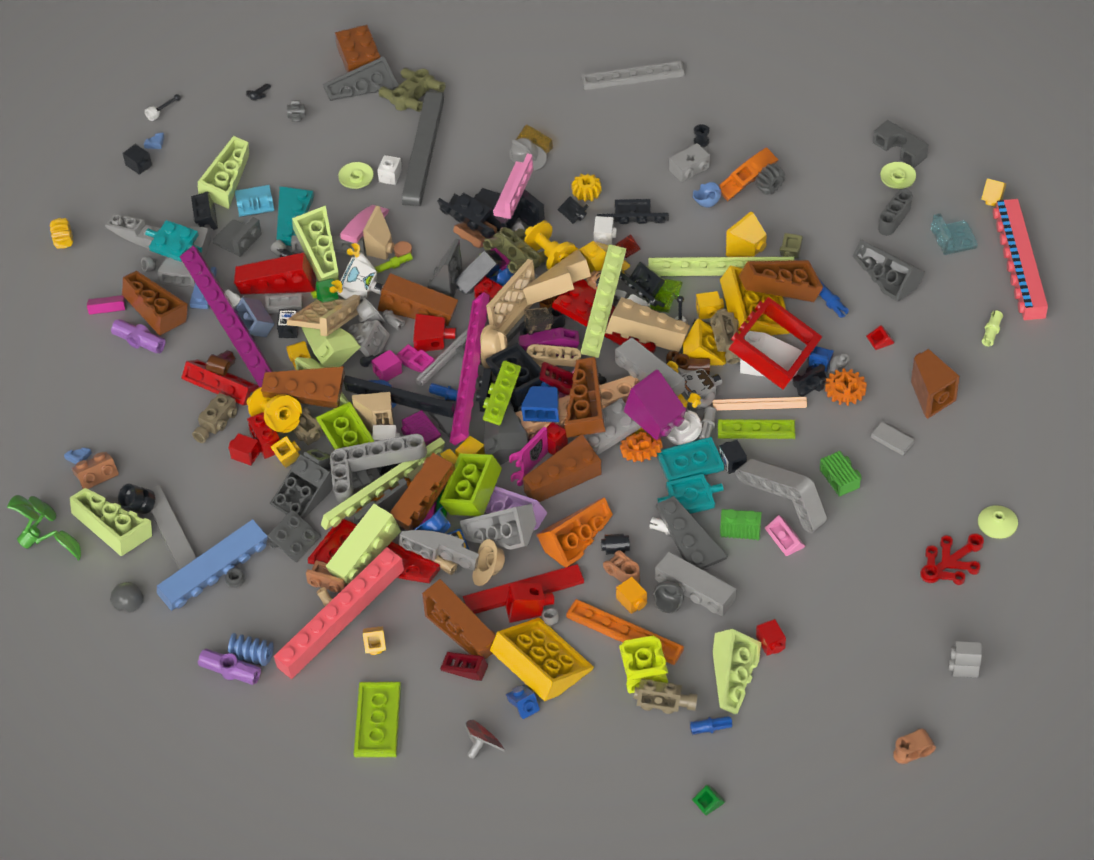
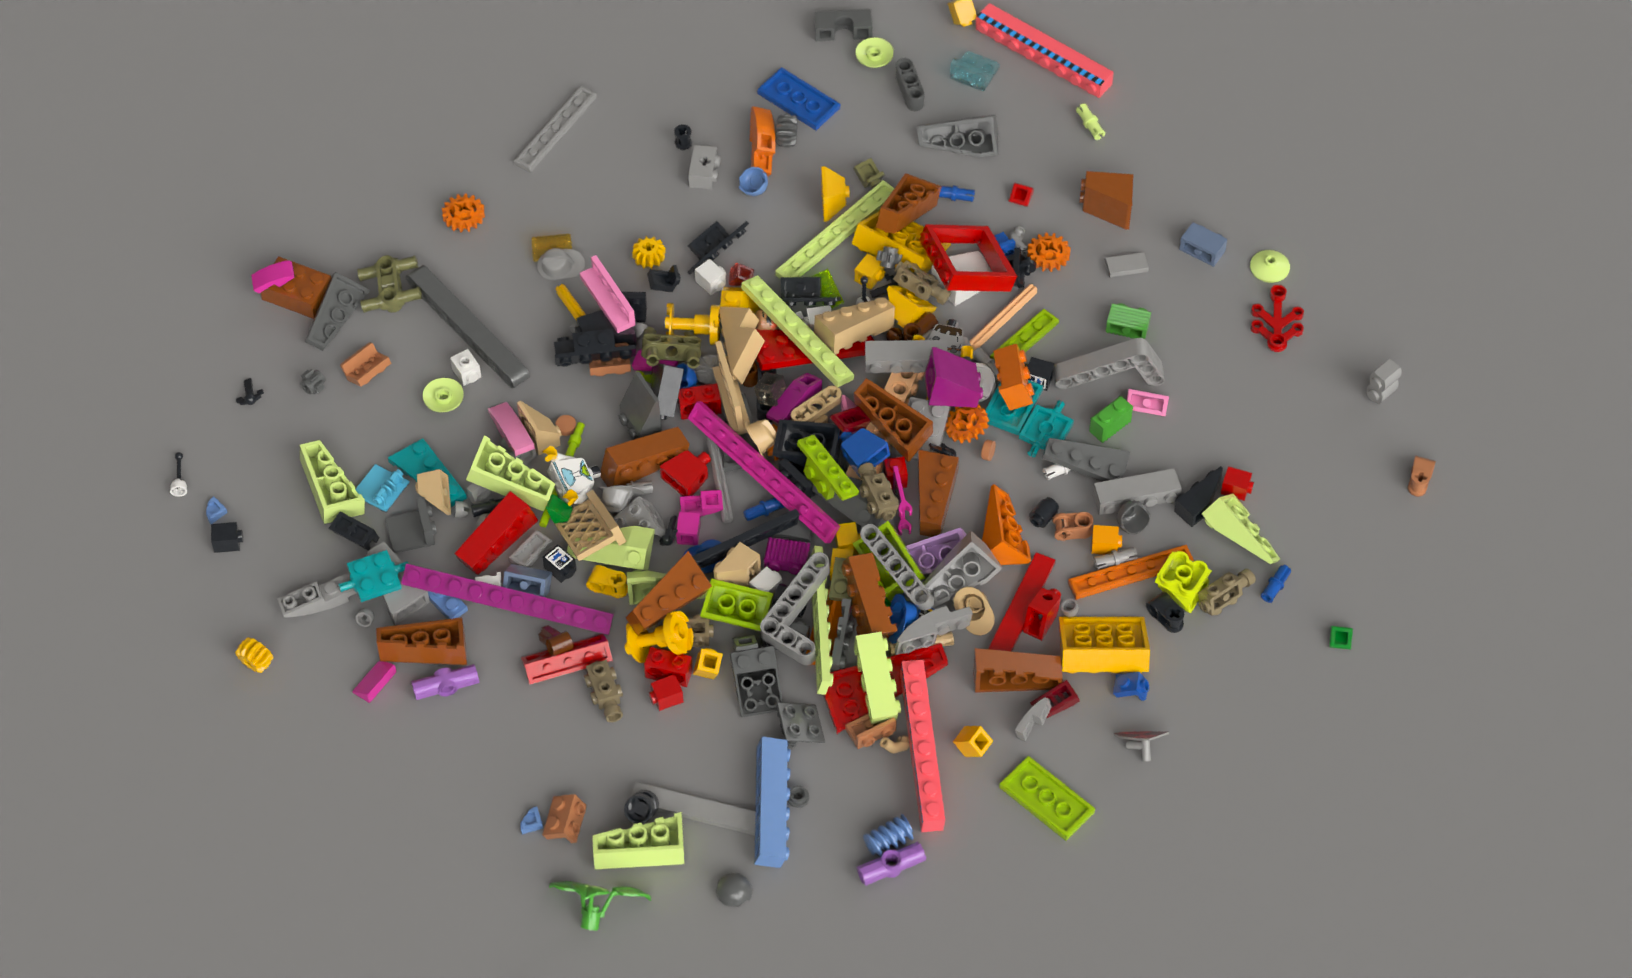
camera: 50 degrees left, 5 degrees up
(273, 223) = (435, 489): none -> tan slope
(336, 124) = (364, 365): none -> nougat bracket
(345, 30) = (274, 274): none -> dark pink slope
(436, 659) = (1036, 714): none -> light grey slope
(459, 487) = (890, 560): none -> light grey beam
(500, 179) = (569, 301): none -> yellow axle
(509, 81) = (463, 212): none -> orange gear
(515, 432) = (878, 493): none -> dark tan brick
(607, 456) = (943, 449): none -> black piece
(609, 676) = (1166, 612): none -> black piece
(624, 613) = (1115, 558): none -> light grey pin
(633, 475) = (988, 450): none -> nougat tile
(699, 441) = (1013, 377): none -> orange wedge
(723, 301) = (889, 257): none -> dark grey gear
(741, 621) = (1198, 498): none -> black slope
(811, 168) = (798, 98): none -> blue tile
(964, 467) = (1203, 244): none -> sand blue brick

